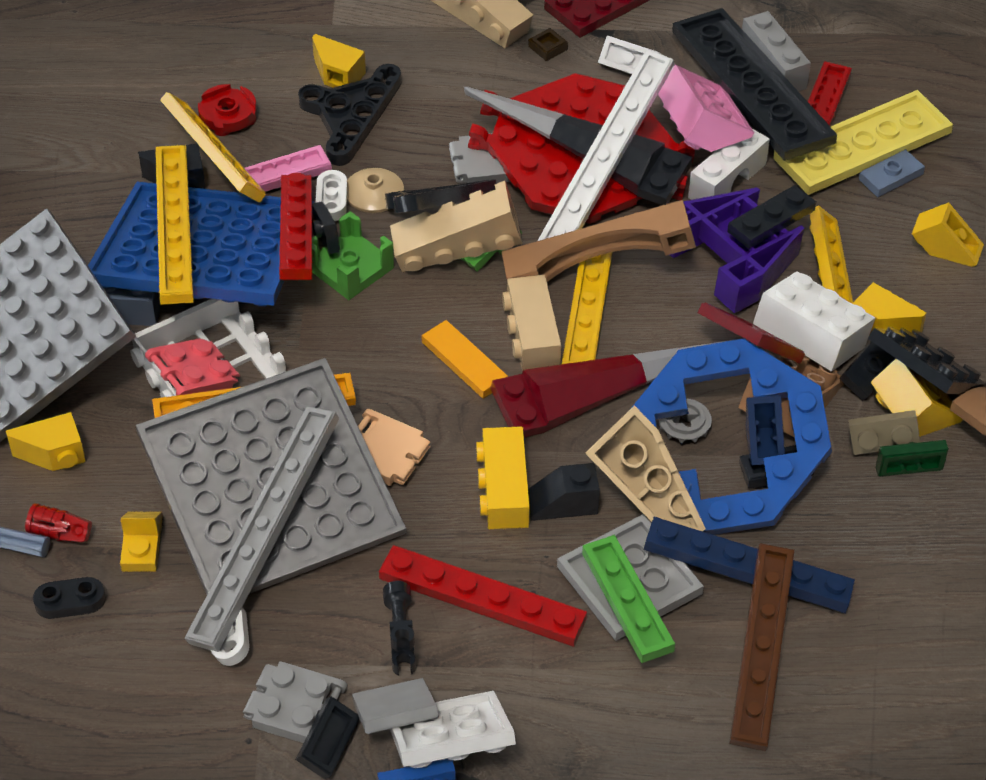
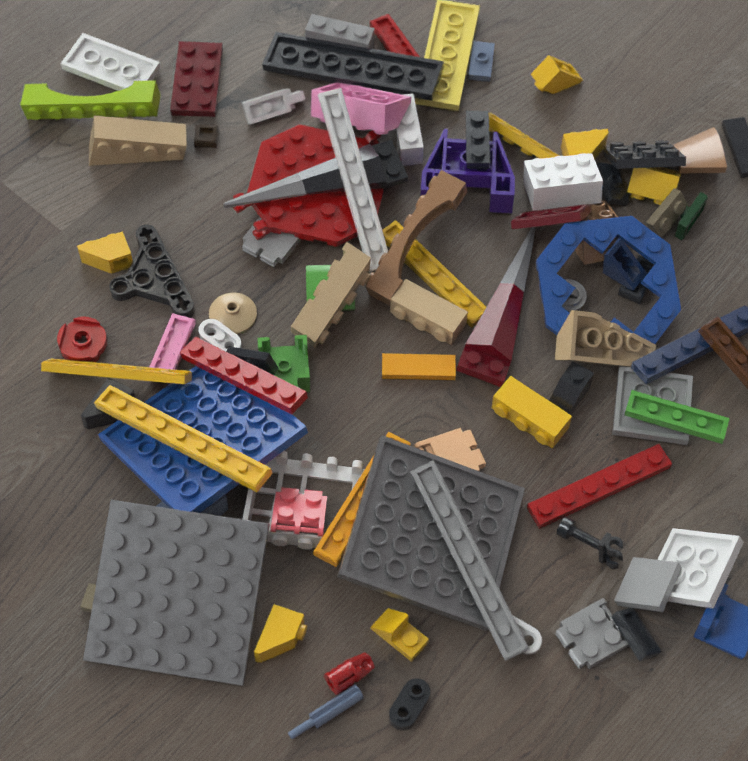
camera: 50 degrees left, 10 degrees up
(432, 197) = (290, 289): black beam -> none

